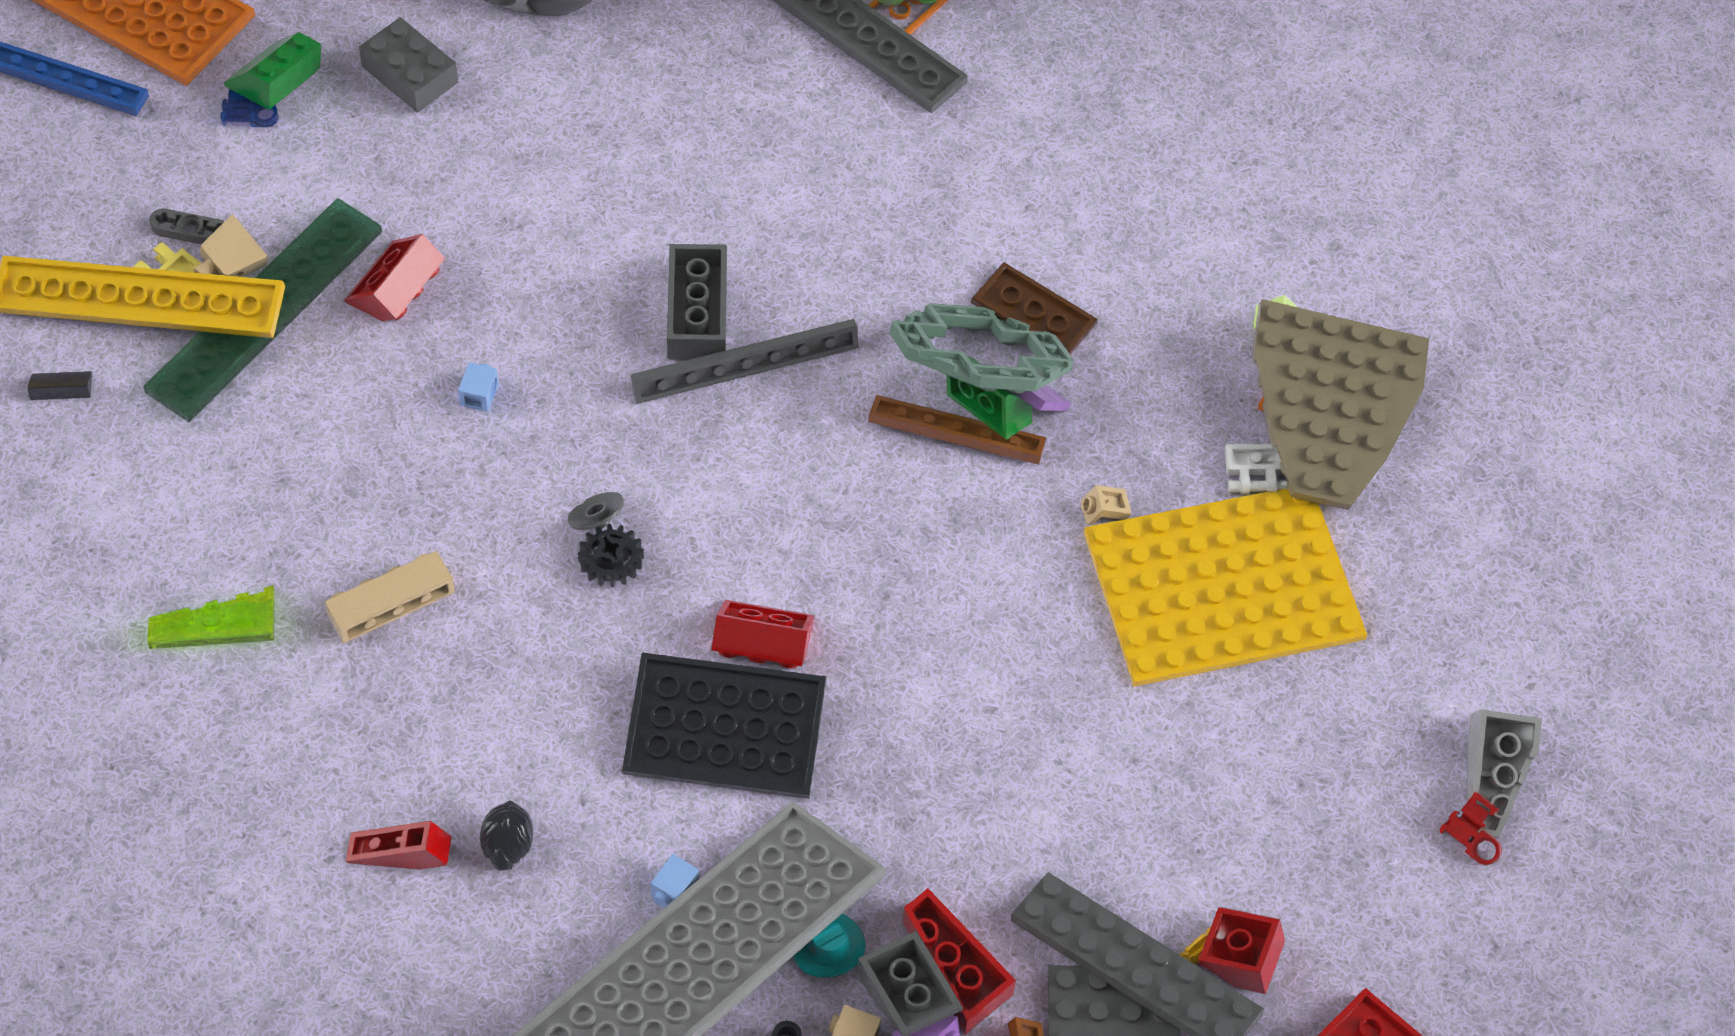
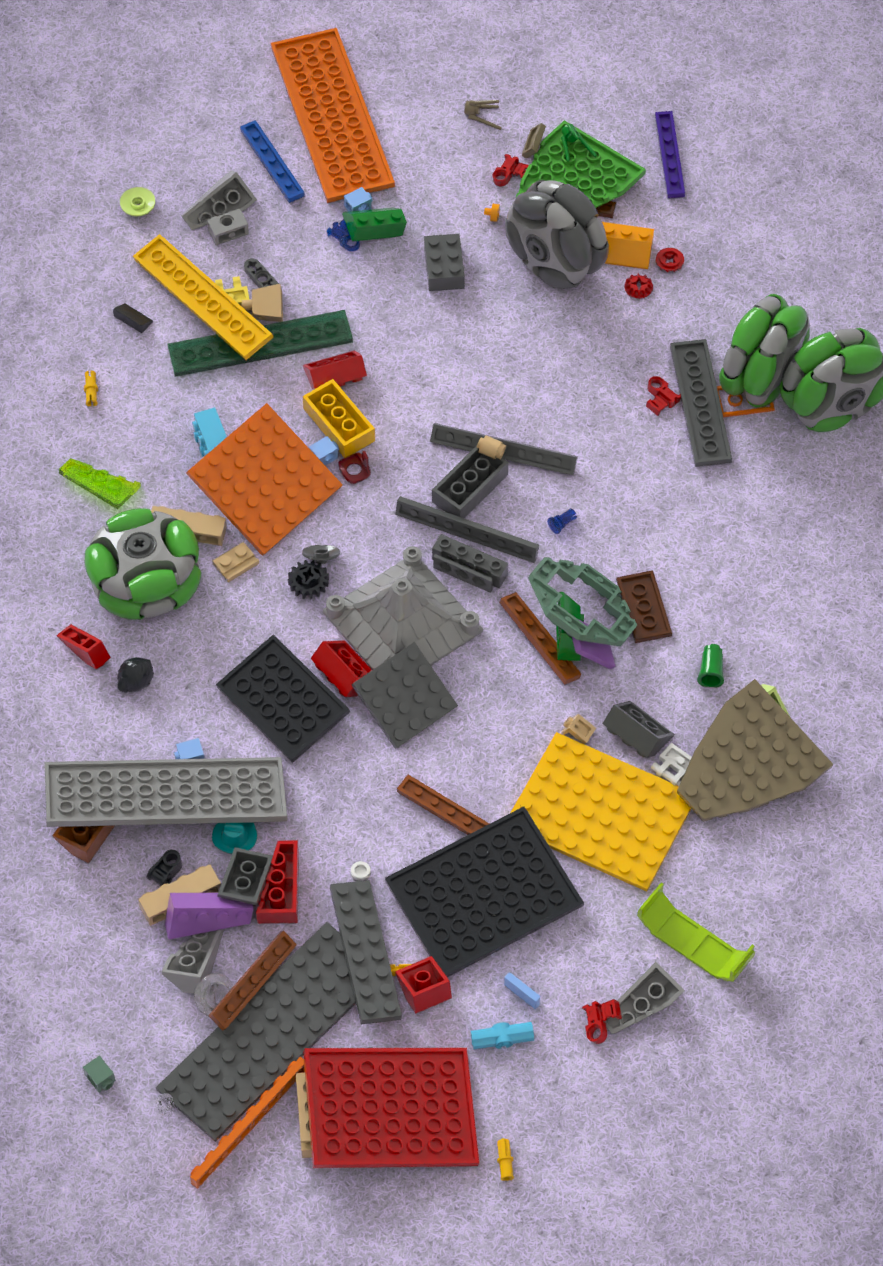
camera: 45 degrees right, 0 degrees up
(43, 163) = (224, 196): none -> light grey wedge
(85, 192) = (227, 226): none -> light grey brick
(89, 510) = (91, 388): none -> yellow pin
(227, 58) = (358, 200): none -> light blue brick
(329, 466) = (208, 430): none -> medium azure brick
(391, 681) = (143, 564): none -> piece
(442, 468) = (264, 479): none -> orange plate
(459, 331) = (339, 418): none -> yellow brick
(494, 599) = (235, 562): none -> tan plate
(545, 369) = (359, 459): none -> dark red piece
(695, 239) = (491, 447): none -> tan brick
(710, 230) = (514, 450): none -> dark grey plate
(772, 525) = (400, 609): none -> light grey piece
(775, 390) = (478, 561): none -> dark grey brick
(820, 56) = (663, 395): none -> red piece
(844, 279) = (559, 522): none -> clear blue pin
(874, 611) = (404, 695): none -> dark grey plate
(1024, 870) = (360, 871): none -> white tile
(1061, 714) = (440, 805): none -> dark orange plate
(1173, 457) = (637, 728): none -> dark grey slope
(1181, 325) = (711, 667): none -> green plant
(1197, 781) = (484, 892): none -> black plate
(1356, 866) = (522, 990): none -> light blue tile
(1387, 939) = (502, 1035): none -> medium azure piece
(1484, 655) = (691, 938): none -> lime windscreen

